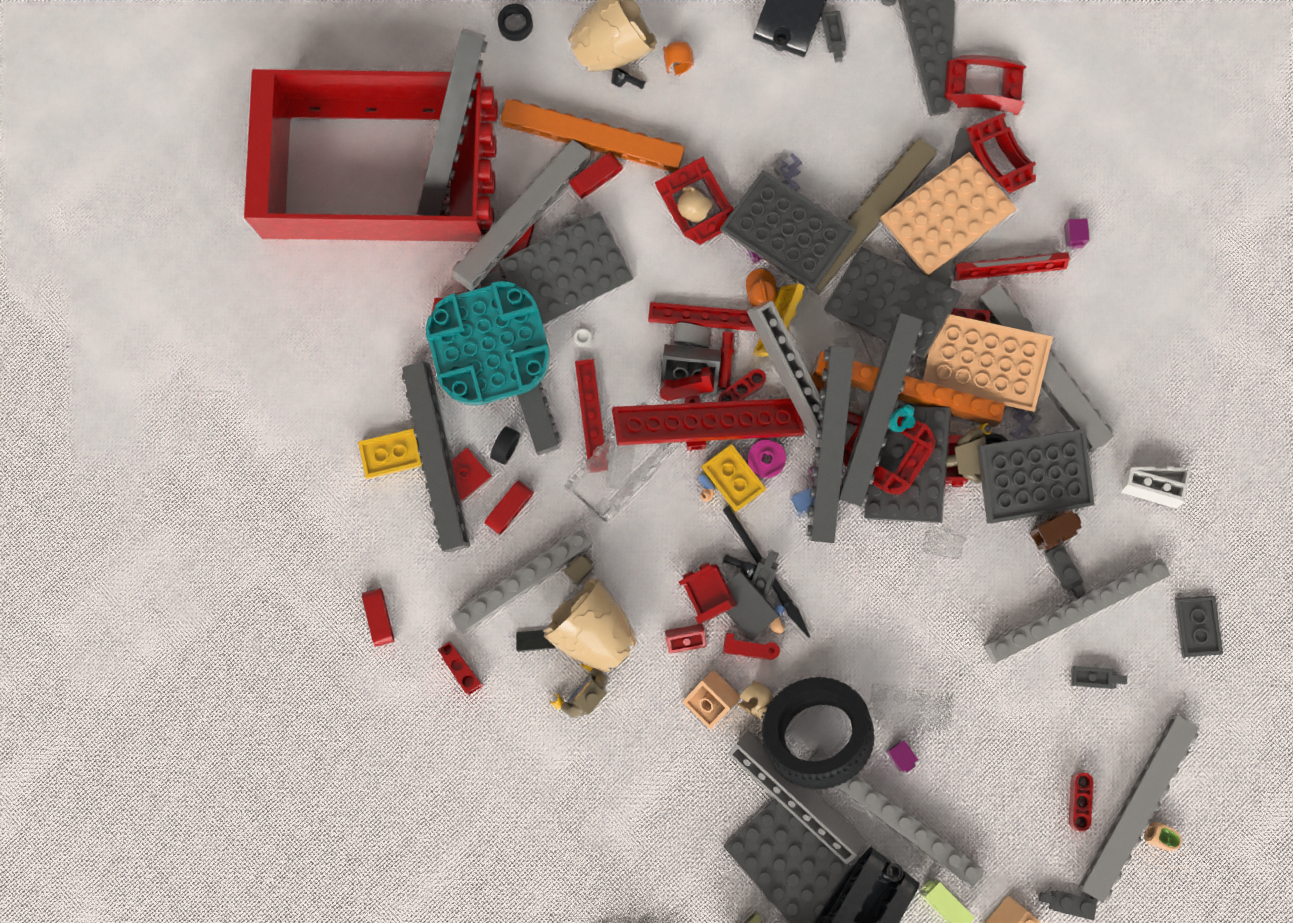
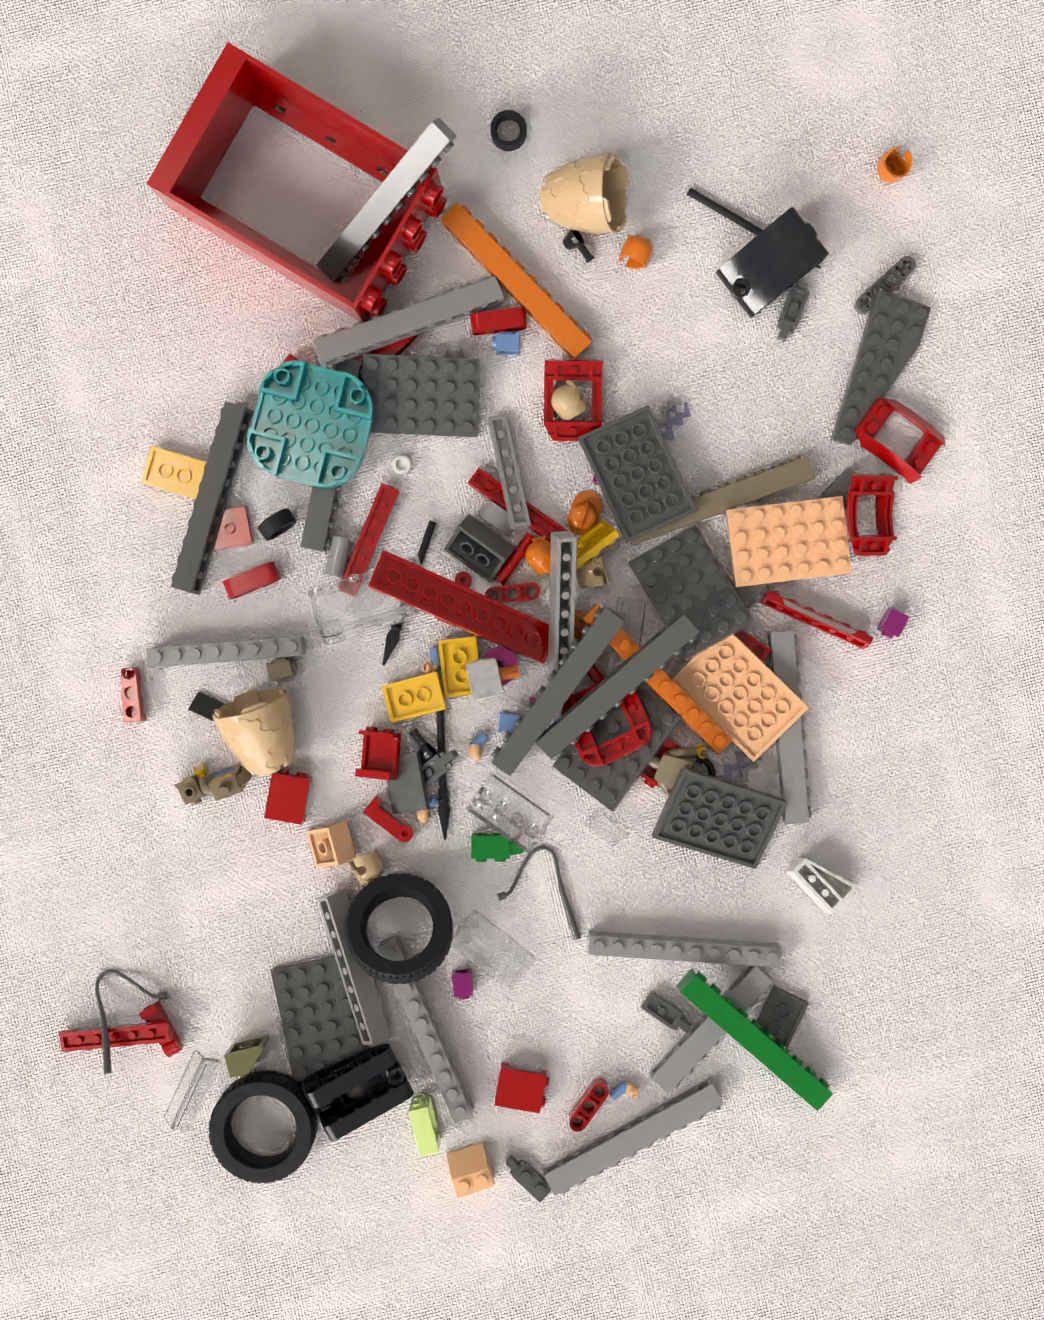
camera: 30 degrees right, 10 degrees up
(378, 617) = (86, 611): red beam -> none
(553, 717) = (193, 784): none -> dark tan brick
(573, 444) = (339, 553): none -> light grey pin
(613, 188) = (506, 343): none -> medium blue window
(649, 678) = (288, 797): none -> red panel
(660, 486) = (394, 634): none -> black piece
(678, 290) = (508, 472): none -> light grey plate
(685, 638) = (339, 779): red slope -> none
(687, 386) = (466, 563): red leg -> none
(709, 526) = (414, 697): none -> yellow plate
(747, 343) = (538, 555): none -> orange helmet
(766, 463) = (487, 677): none -> flat silver piece
(787, 540) = (474, 746): none -> arm
(801, 332) = (592, 573): none -> tan helmet
(853, 577) = (510, 813): none -> clear piece
(856, 616) = (492, 846): none -> green hinge
(908, 421) = (636, 709): teal piece -> none
(958, 640) = (568, 912): none -> dark grey piece
(1012, 822) = (521, 1089): none -> red panel
(1061, 526) = (708, 873): reddish brown brick -> none
(1065, 570) = (696, 908): dark grey hinge -> none
(1104, 768) = (624, 1088): none -> arm
(1144, 668) = (706, 1033): none -> light grey brick
(1162, 836) = (637, 1171): light nougat rock -> none
(1189, 652) = (754, 1039): none -> green brick

